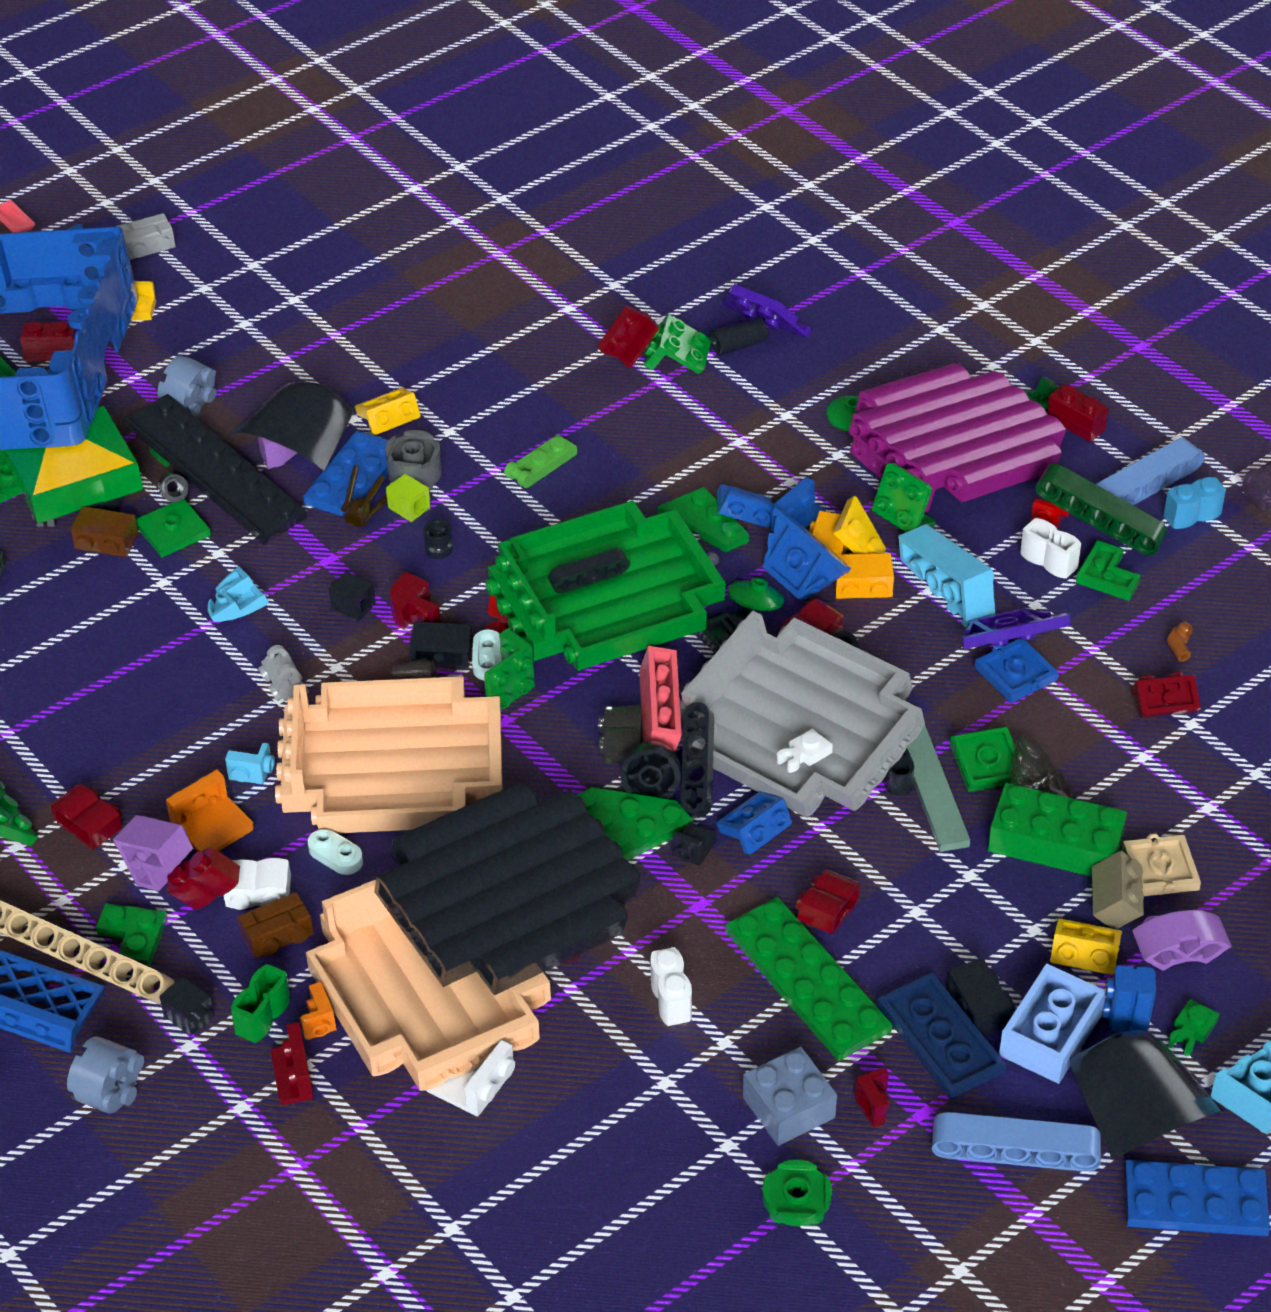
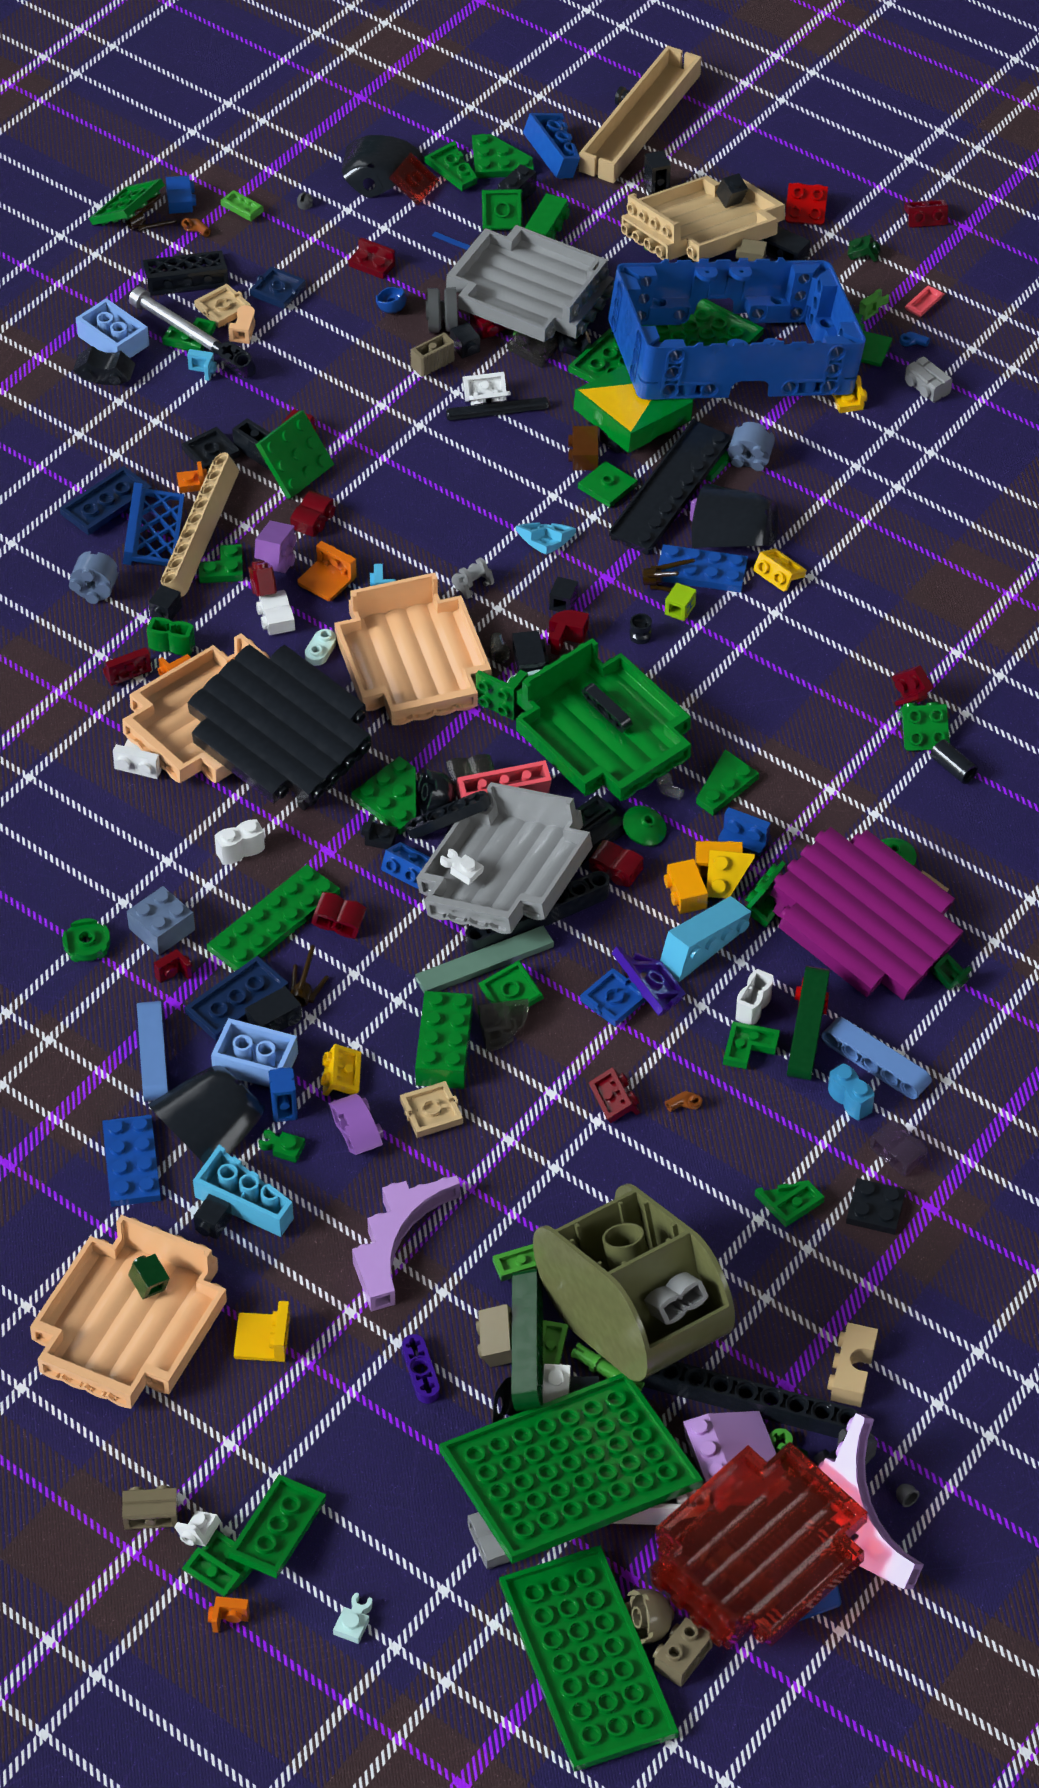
camera: 75 degrees right, 5 degrees up
(181, 487) = (639, 469): black brick -> none
(275, 925) = (238, 622): reddish brown brick -> none
(416, 456) = (717, 593): dark grey brick -> none
(541, 461) = (755, 671): bright green plate -> none
(744, 505) = (740, 795): blue bracket -> none
(770, 310) = (987, 767): dark purple wing -> none
(800, 558) = (680, 841): blue wing -> none
(943, 961) = (302, 990): none -> dark brown plant
(1078, 412) = (939, 999): dark red brick -> none
(1117, 890) = (391, 1079): dark tan brick -> none

